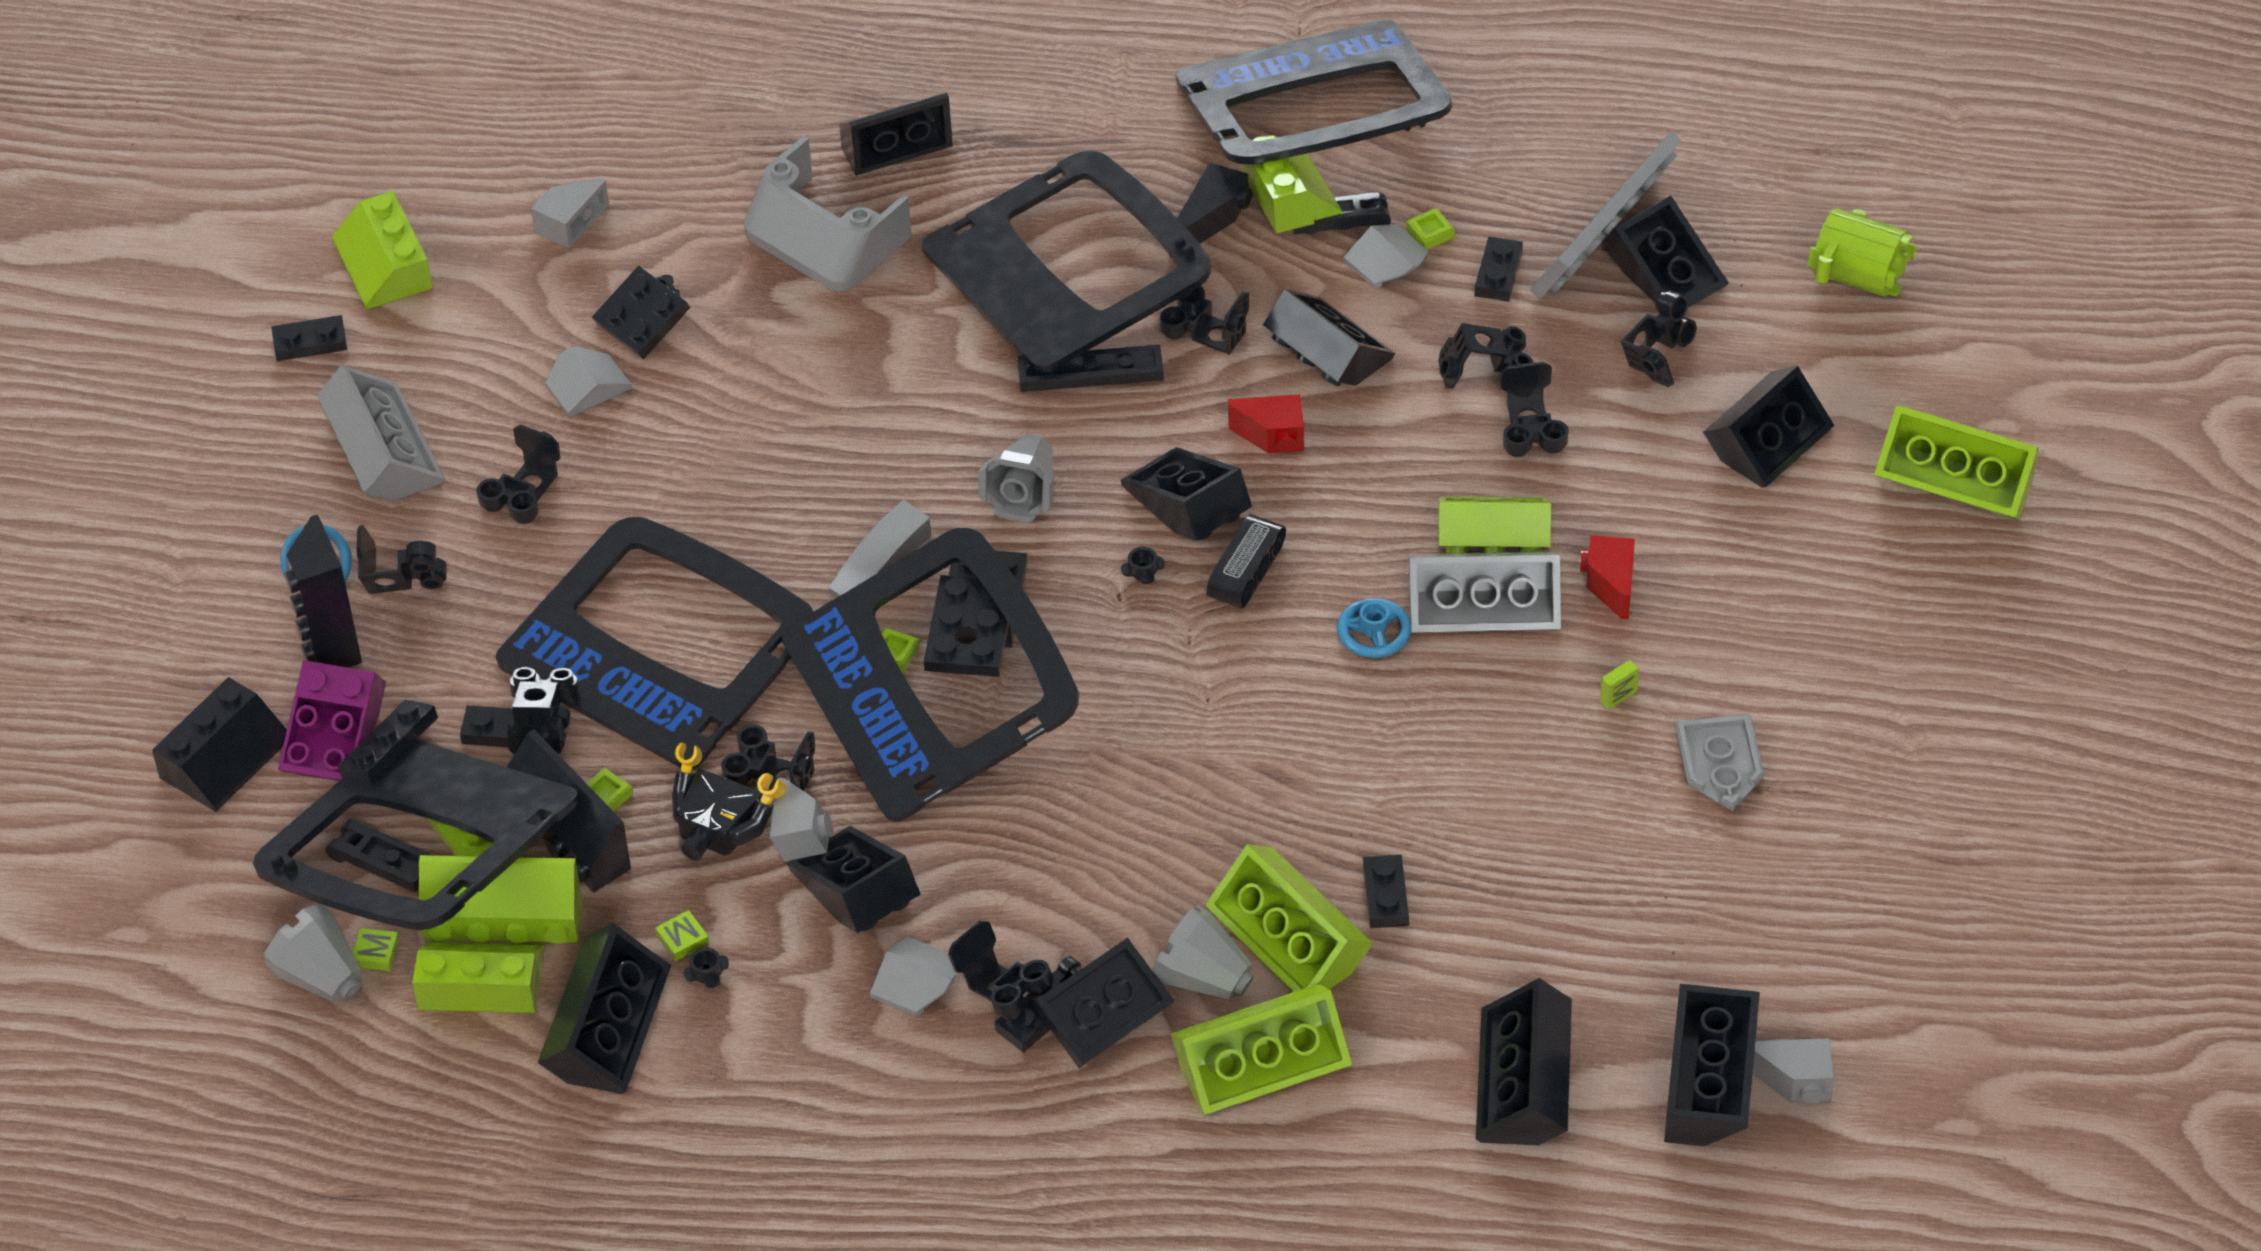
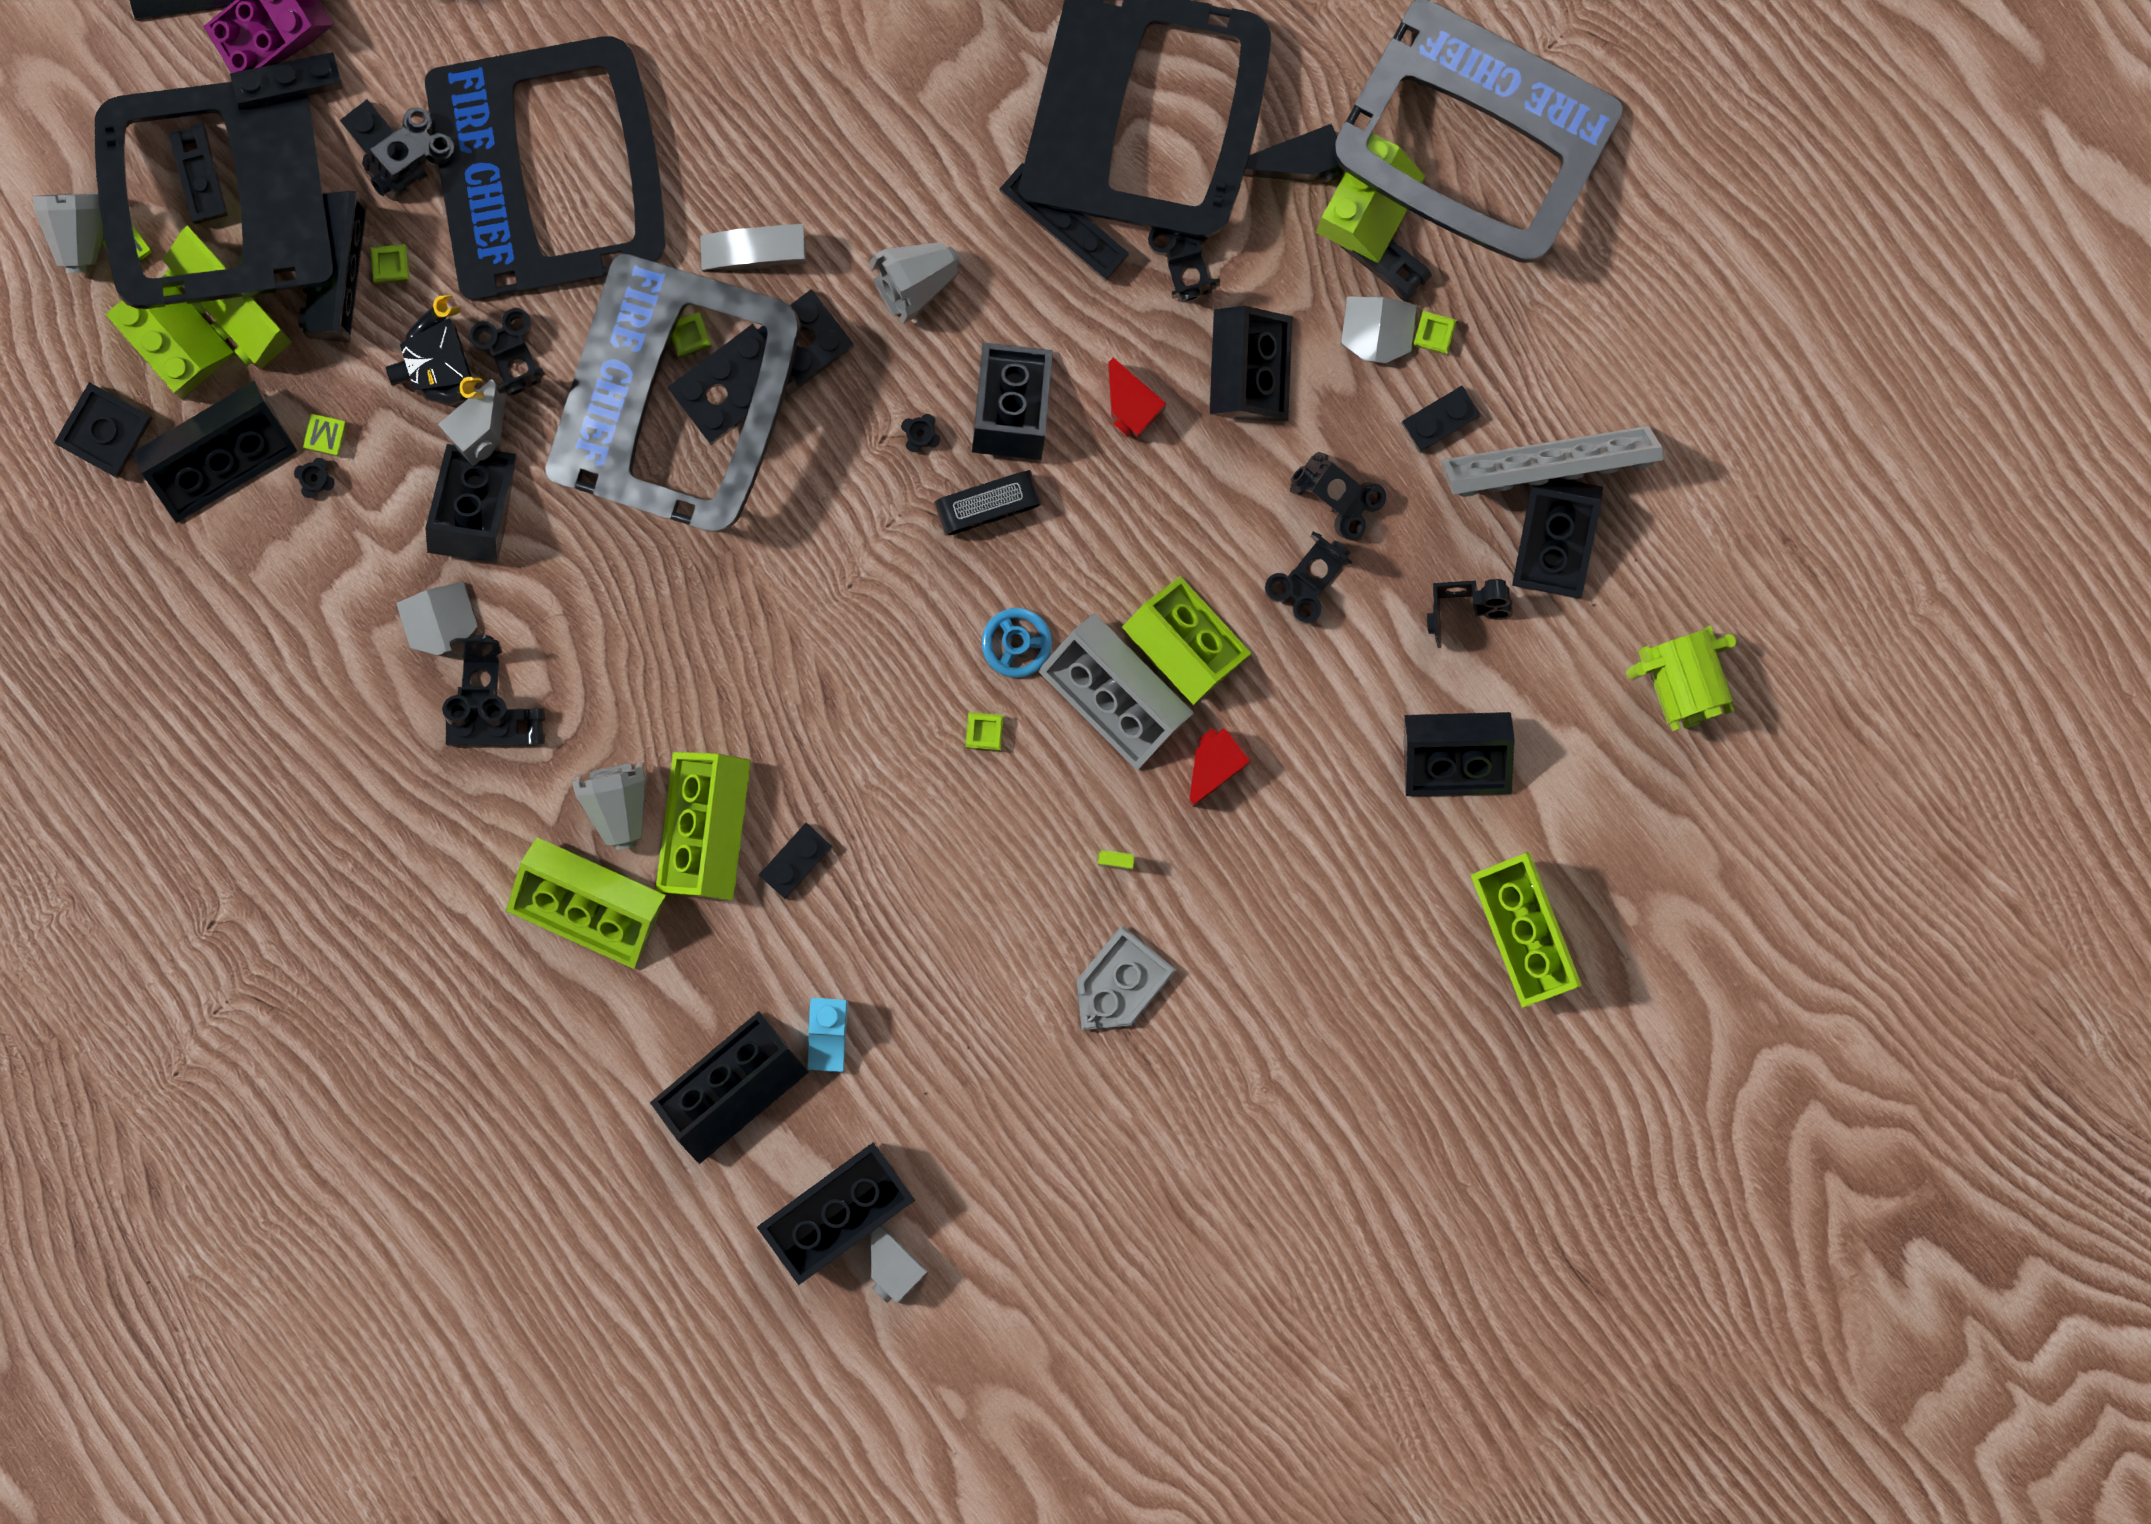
camera: 45 degrees right, 35 degrees up
(494, 1075) = (103, 430): none -> black plate
(1103, 1002) = (520, 769): black plate -> none
(1421, 697) = (984, 731): none -> lime tile
(1547, 956) = (827, 1034): none -> medium azure arch

